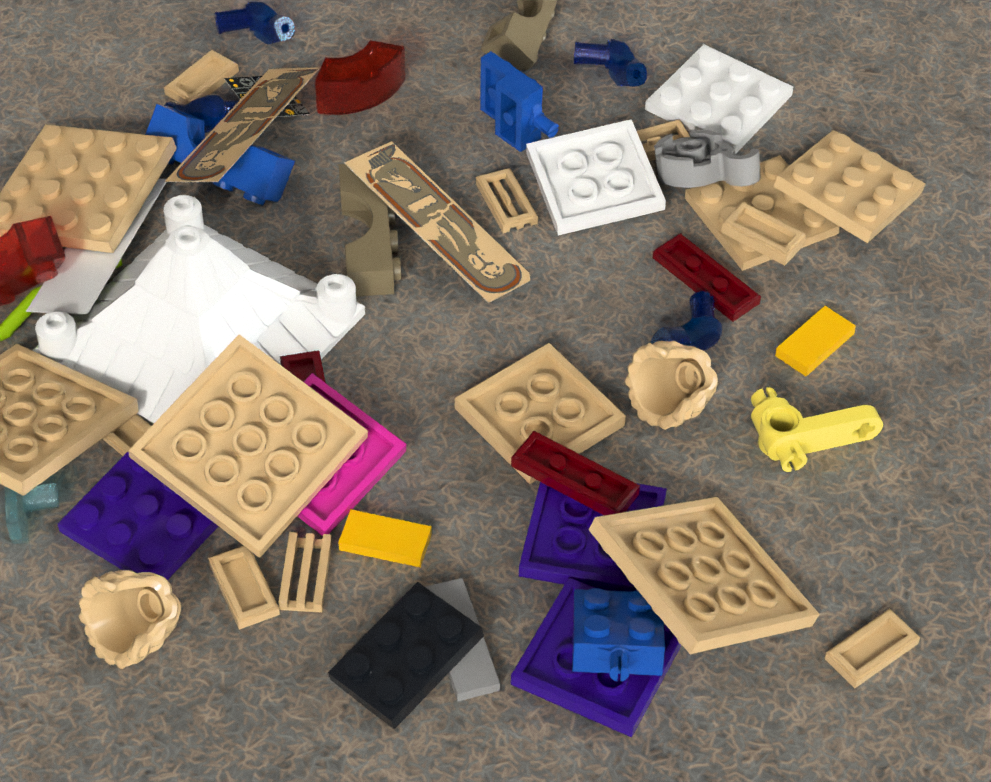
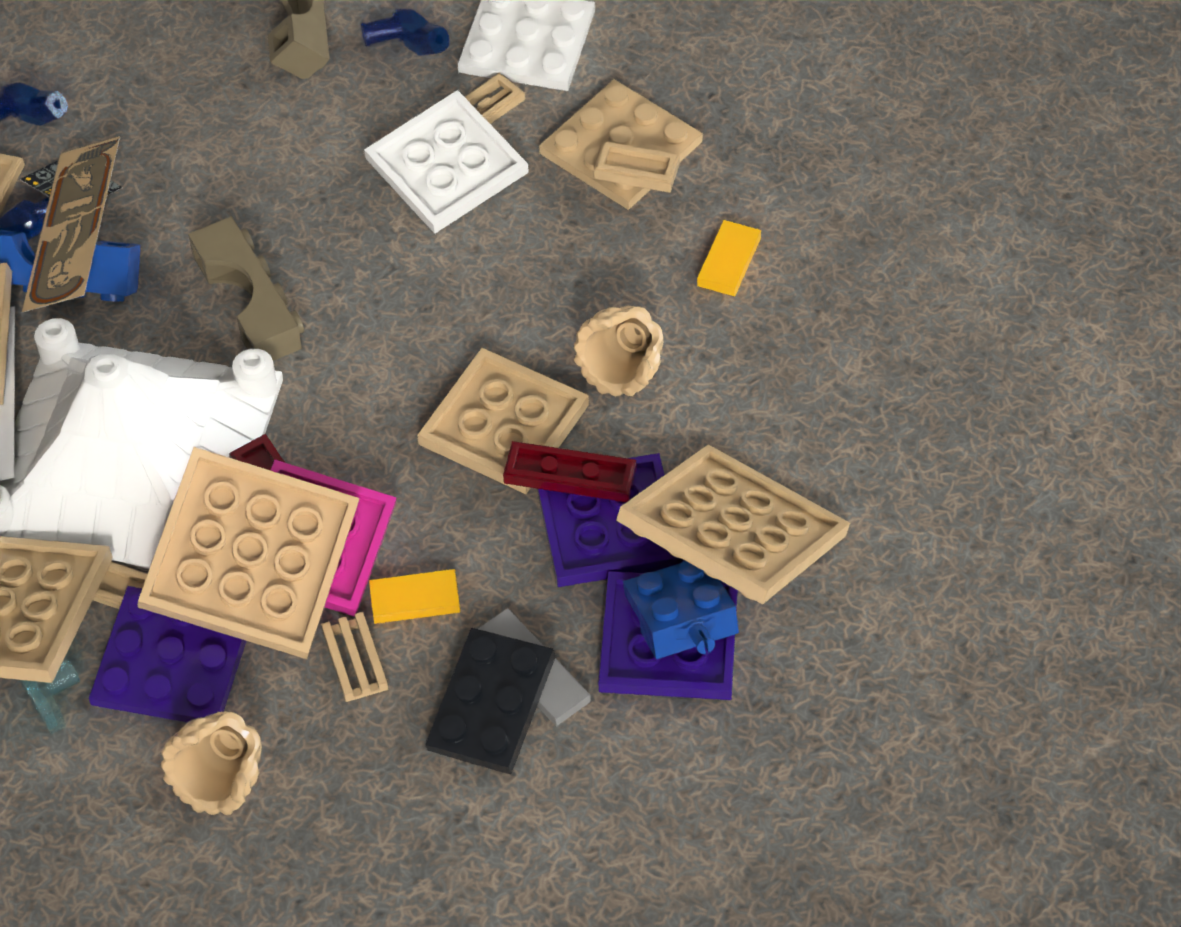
camera: 20 degrees left, 5 degrees up
(243, 586) = (301, 692): tan tile -> none
(360, 79) = (163, 135): clear red brick -> none
(439, 221) = (315, 258): sticker -> none
(513, 103) = (332, 110): blue plate -> none
(515, 220) = (386, 232): tan tile -> none
(701, 331) = (620, 285): clear blue arm -> none
(704, 161) = (545, 110): light grey piece -> none
(705, 274) = (598, 228): dark red tile -> none
(789, 436) = (746, 361): light yellow piece -> none
(849, 185) = (695, 89): tan plate -> none
(872, 648) = (908, 537): tan tile -> none

